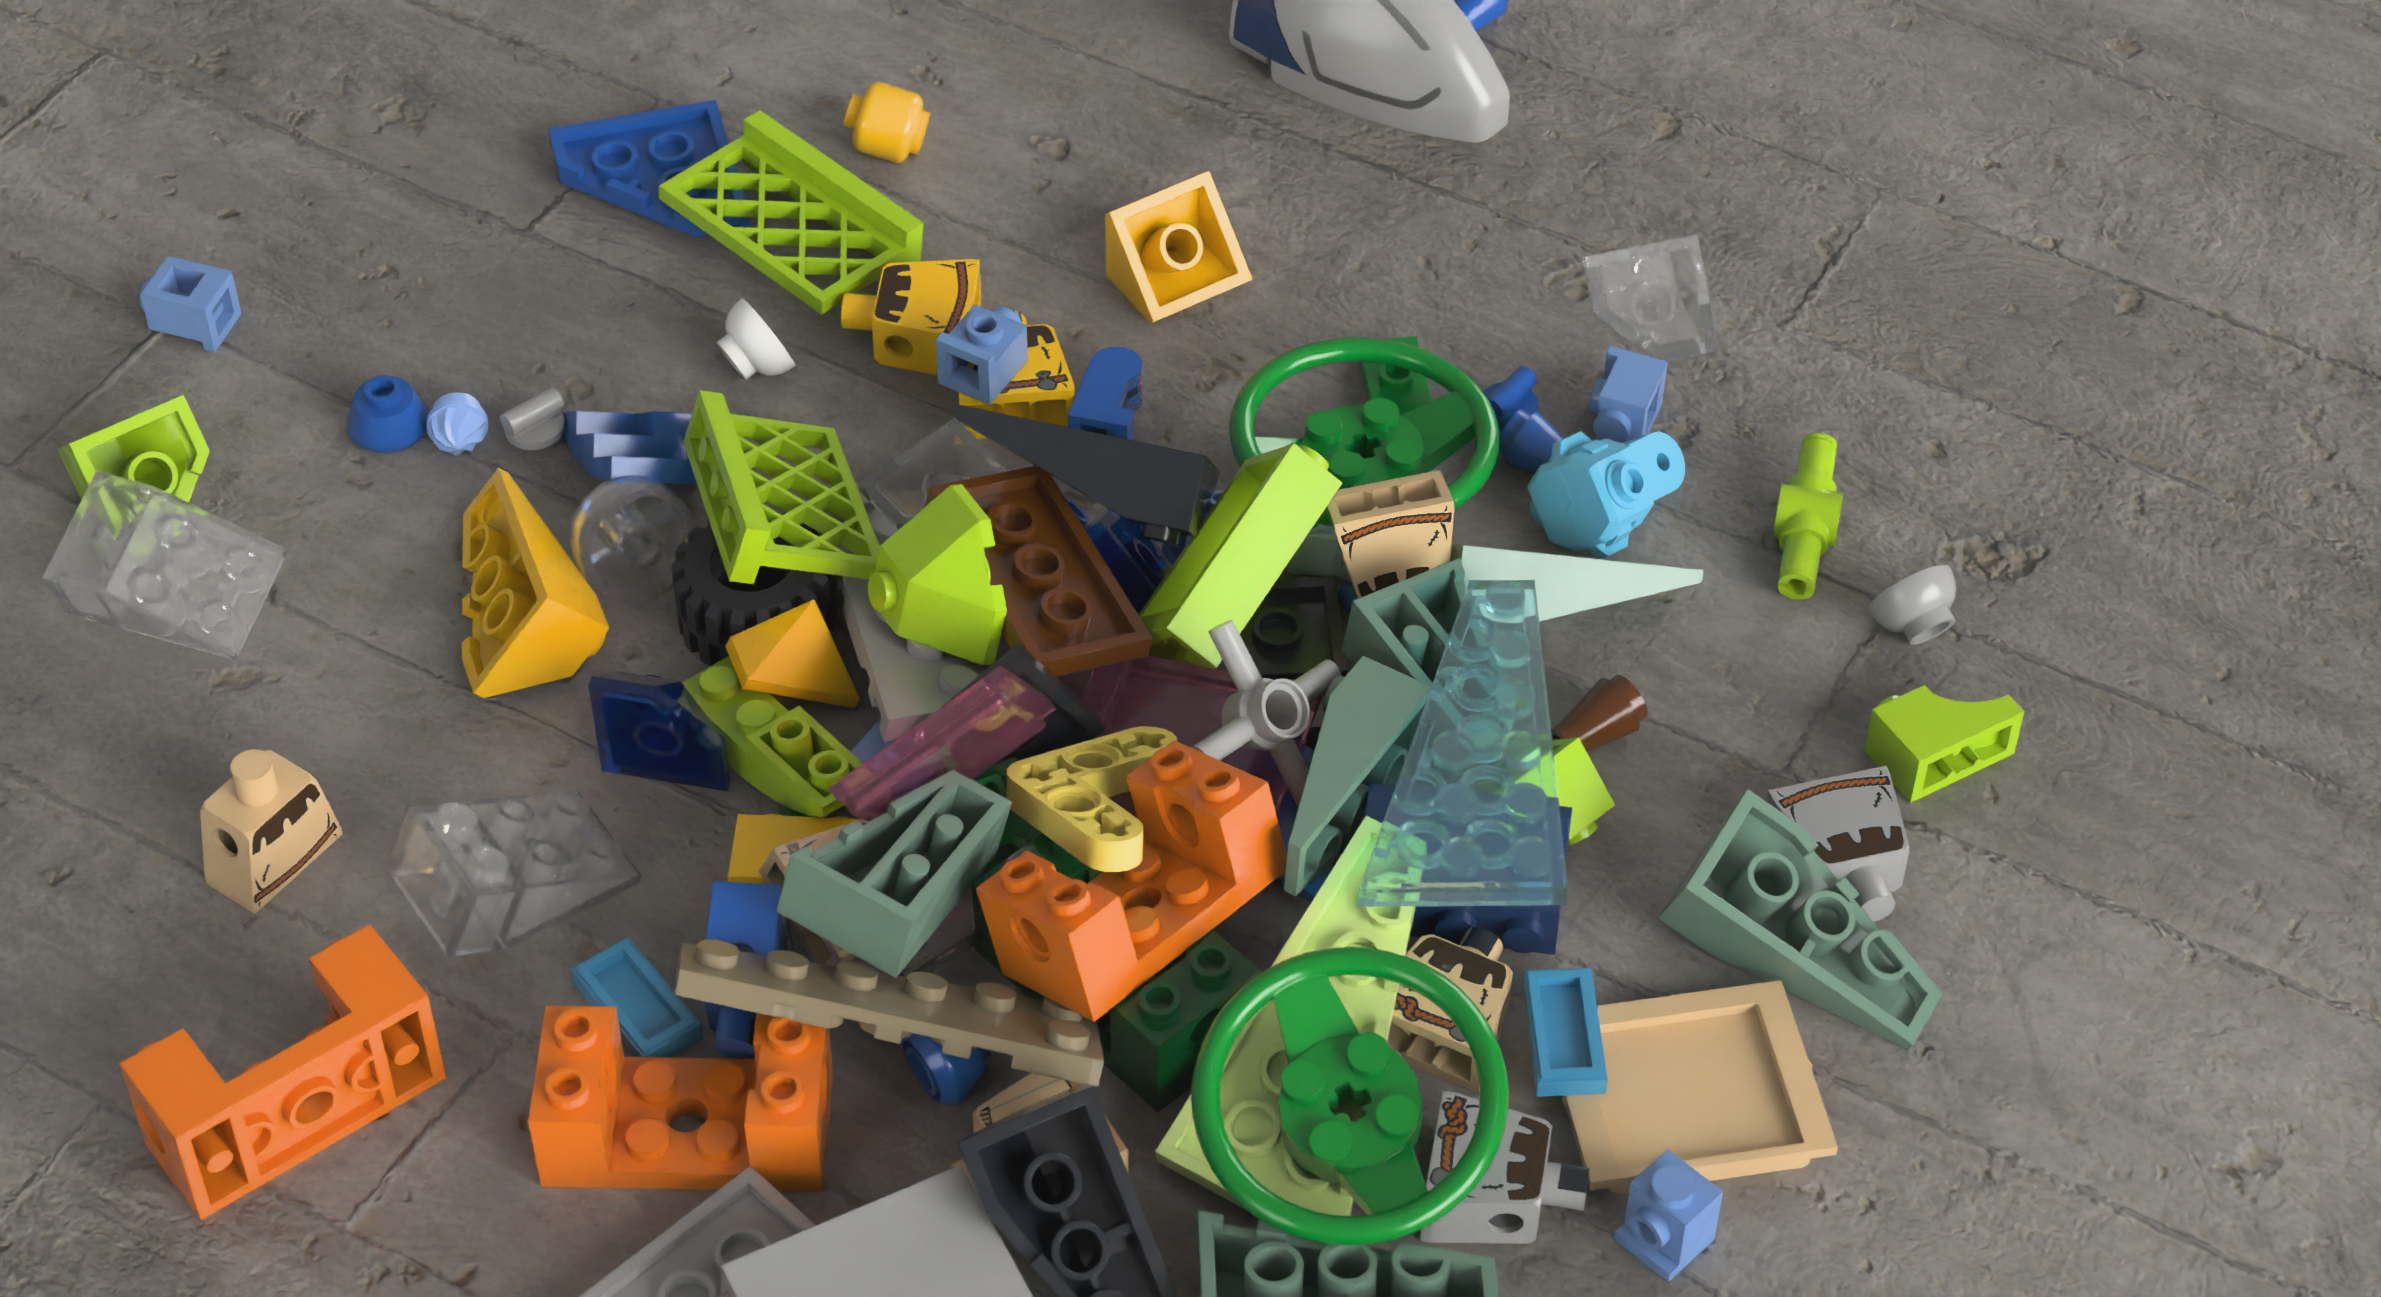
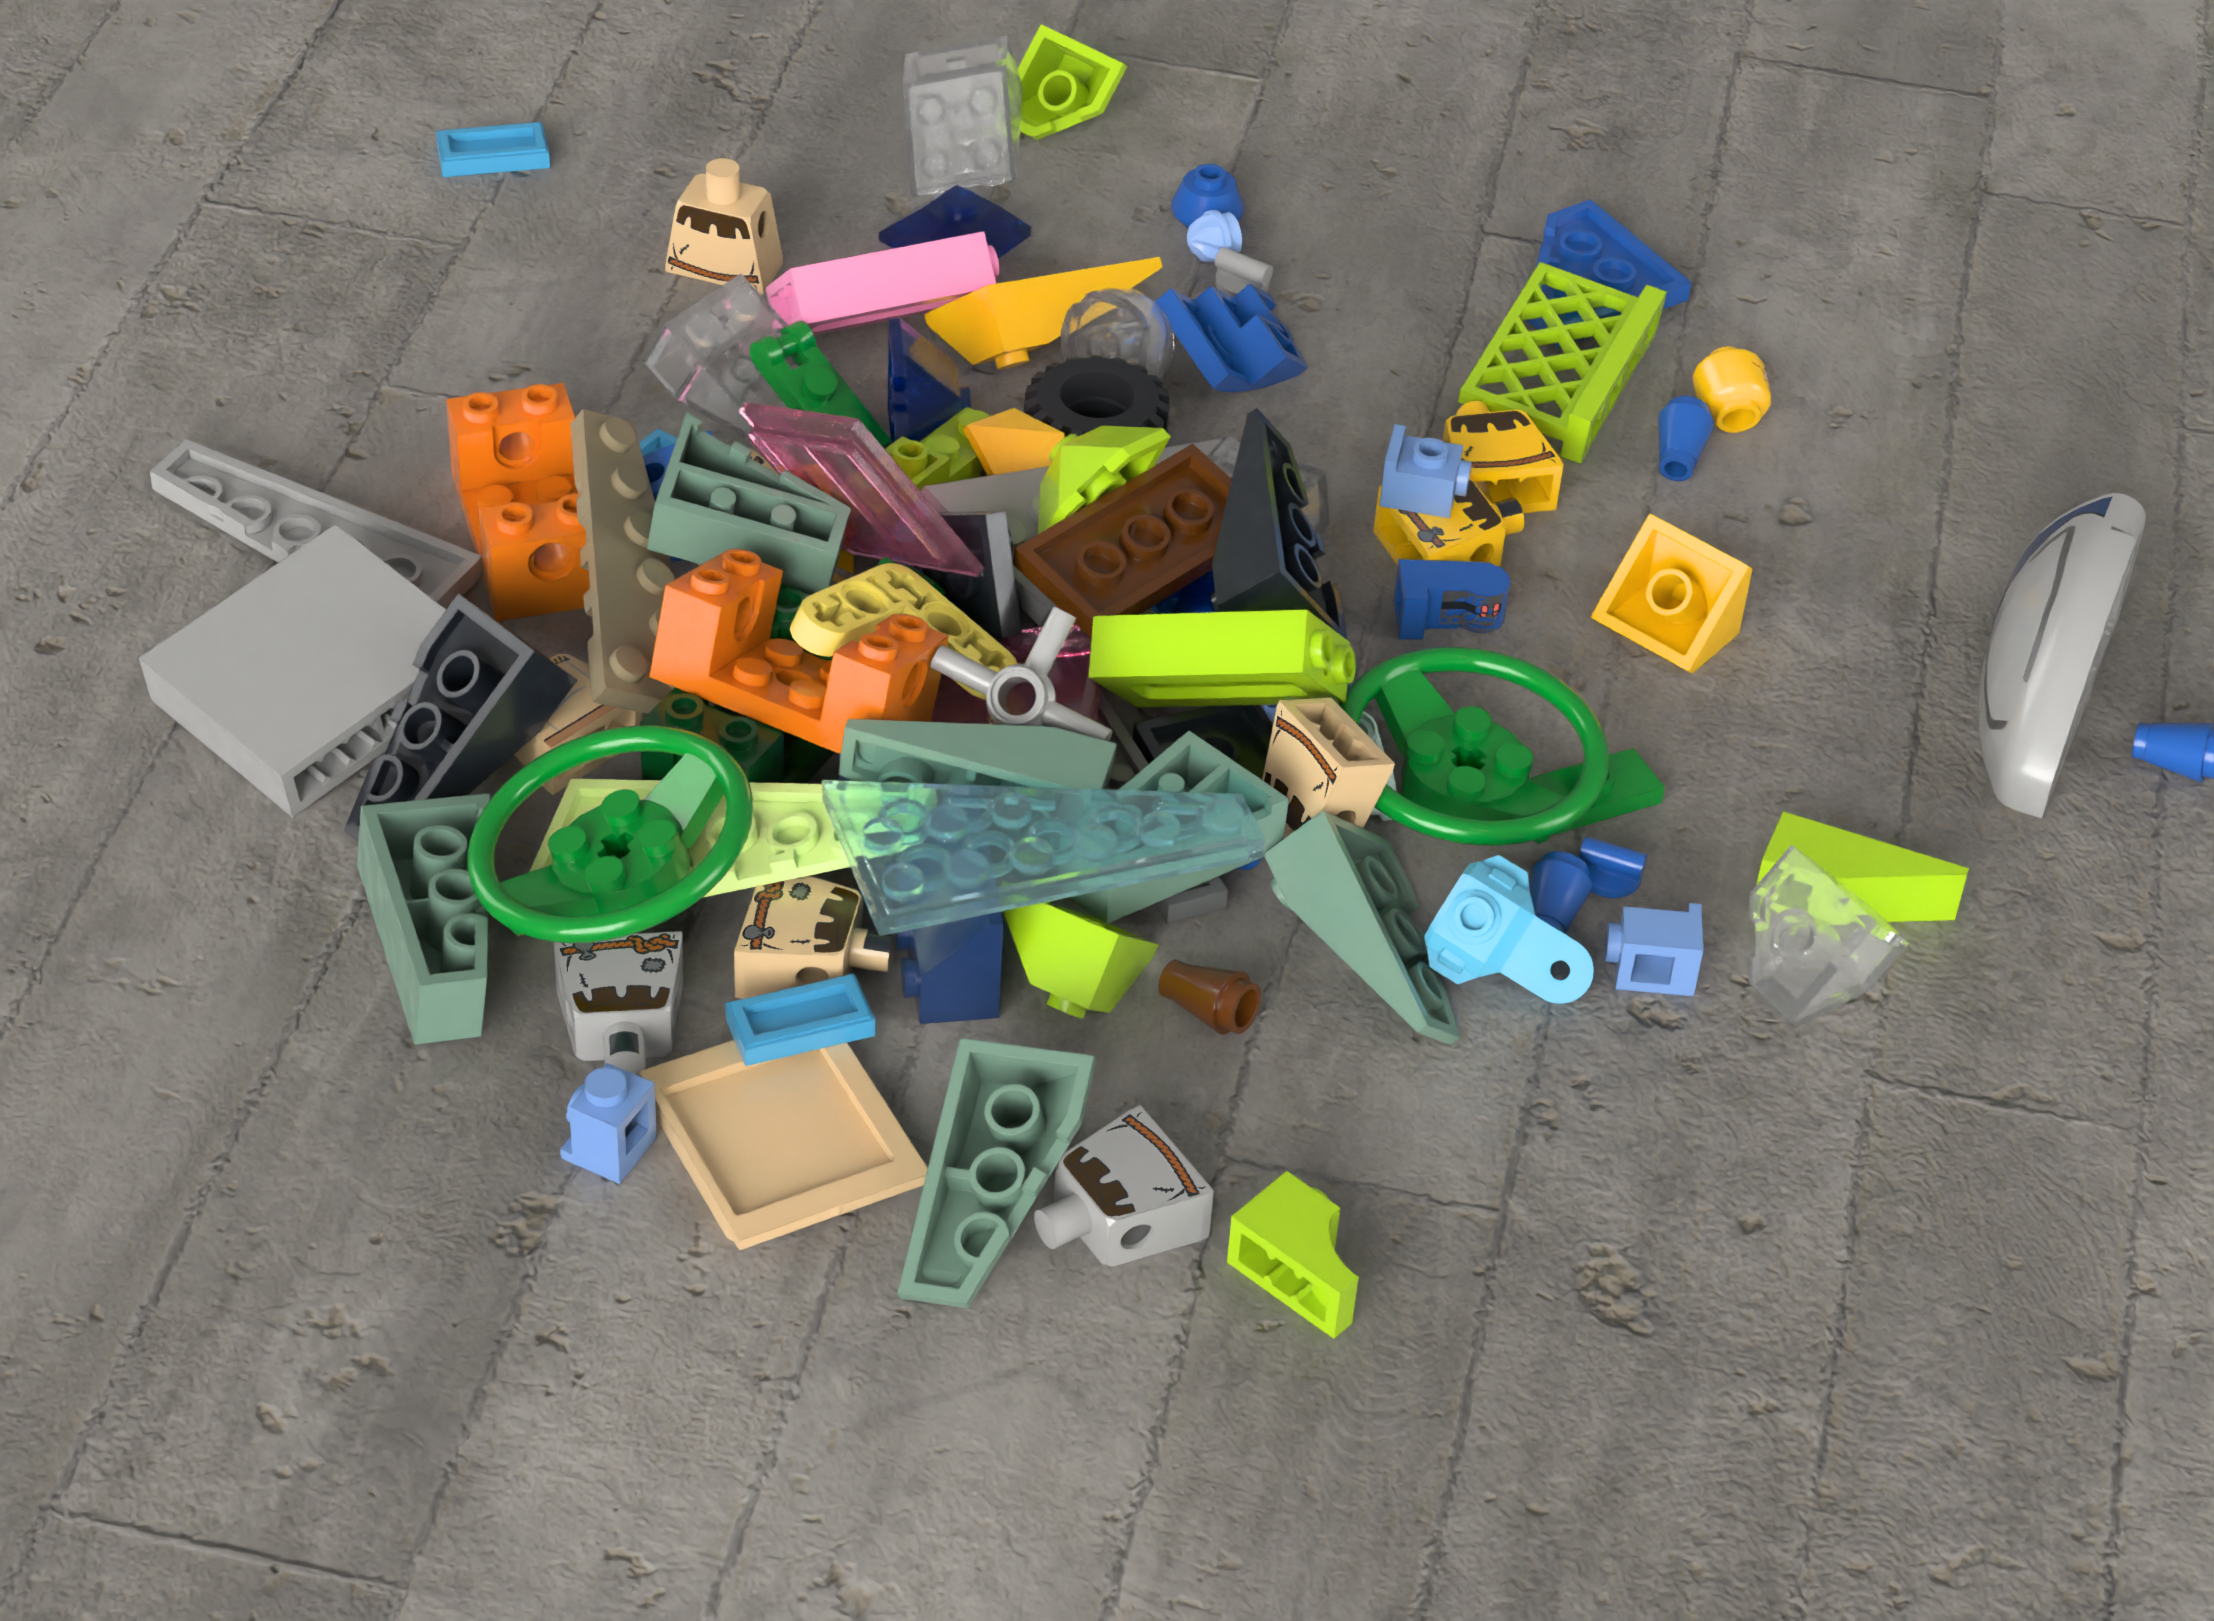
camera: 70 degrees right, 5 degrees down
(191, 301) = (1270, 71): medium blue brick -> none
(242, 1133) = (511, 328): orange plate -> none
(335, 637) = (953, 215): none -> clear blue slope
(459, 698) = (884, 283): none -> bright pink piece
(608, 805) = (813, 384): none -> green plate
(736, 494) = (1162, 352): lime fence -> none
(752, 344) = (1401, 370): white piece -> none
(937, 179) = (1683, 434): none -> blue cone
(1548, 271) = (1887, 877): none -> lime slope
(1807, 516) = (1569, 1111): lime pin -> none
(1918, 604) = (1478, 1210): light grey piece -> none

